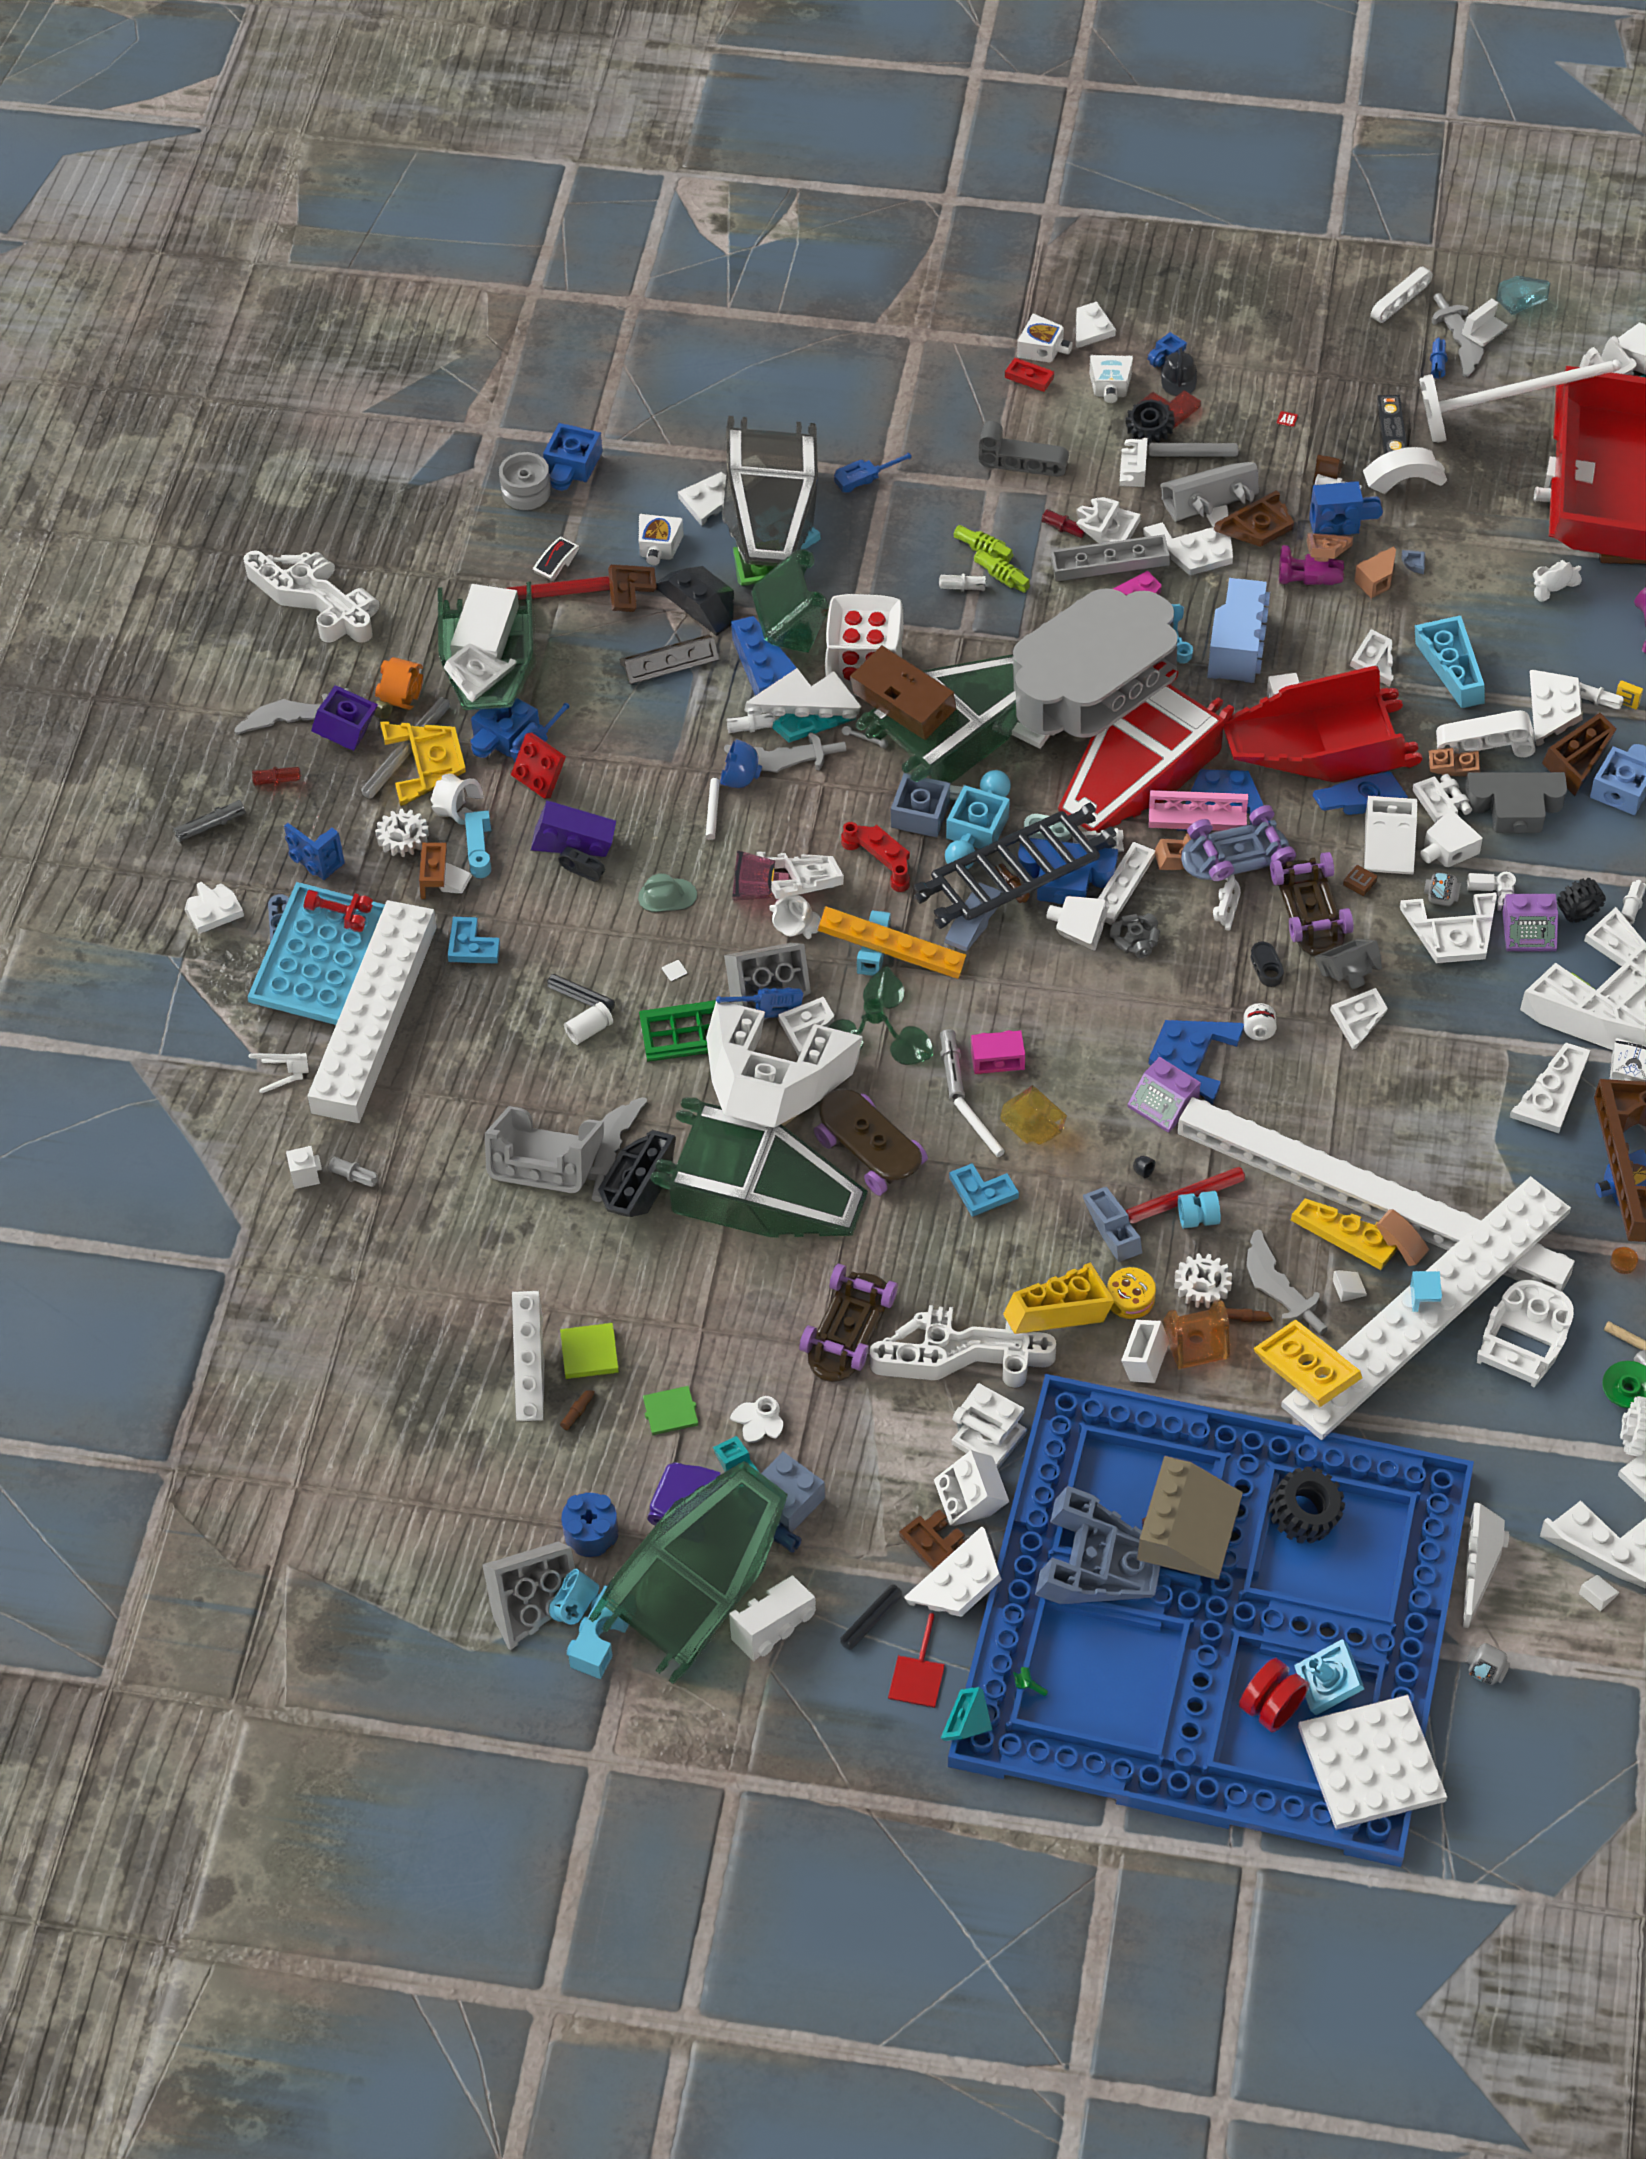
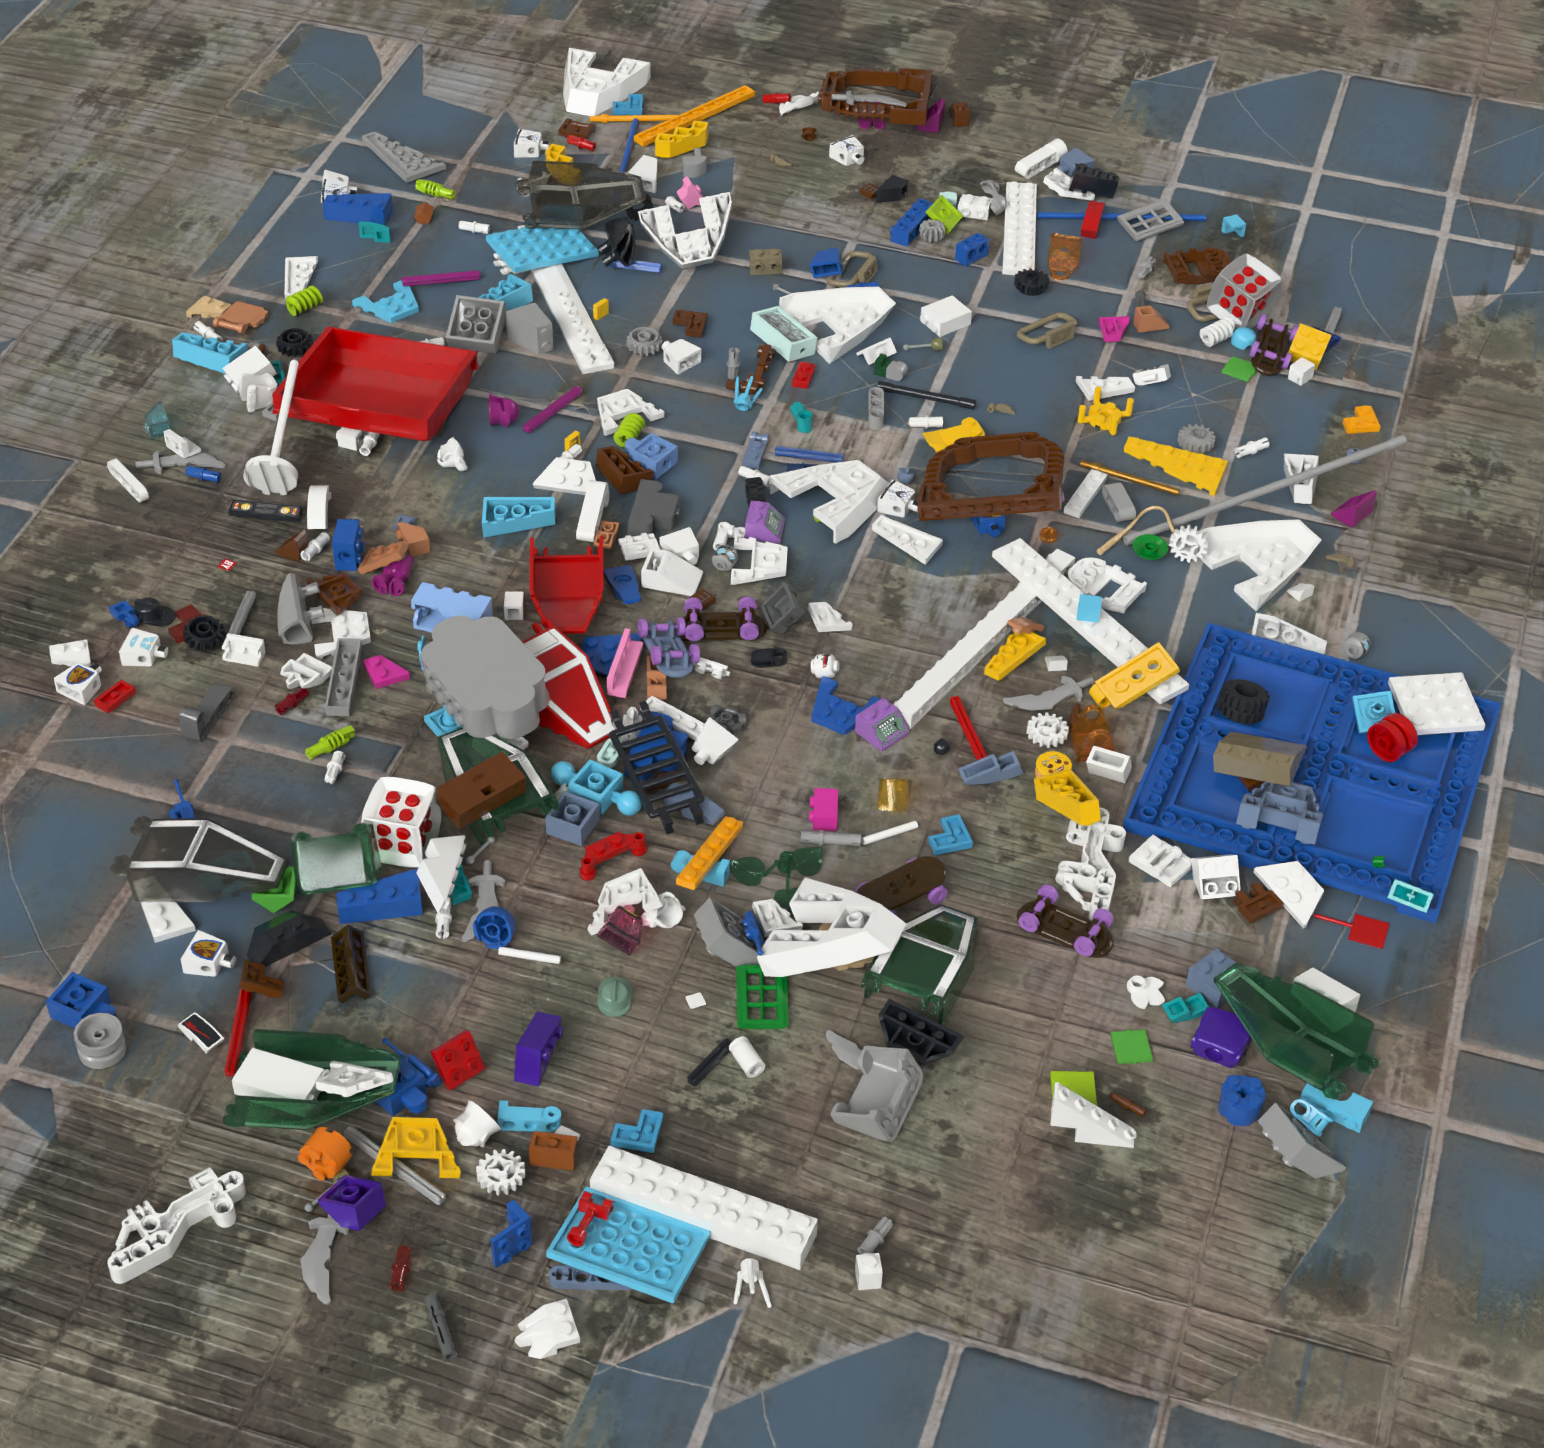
camera: 85 degrees left, 10 degrees down
(581, 864) = (571, 1046): black piece -> none
(871, 1617) = (1319, 947): black axle -> none
(980, 540) = (295, 749): lime hinge -> none
(1199, 1209) = (988, 721): medium azure wheel -> none
(1375, 652) = (494, 555): white wing -> none

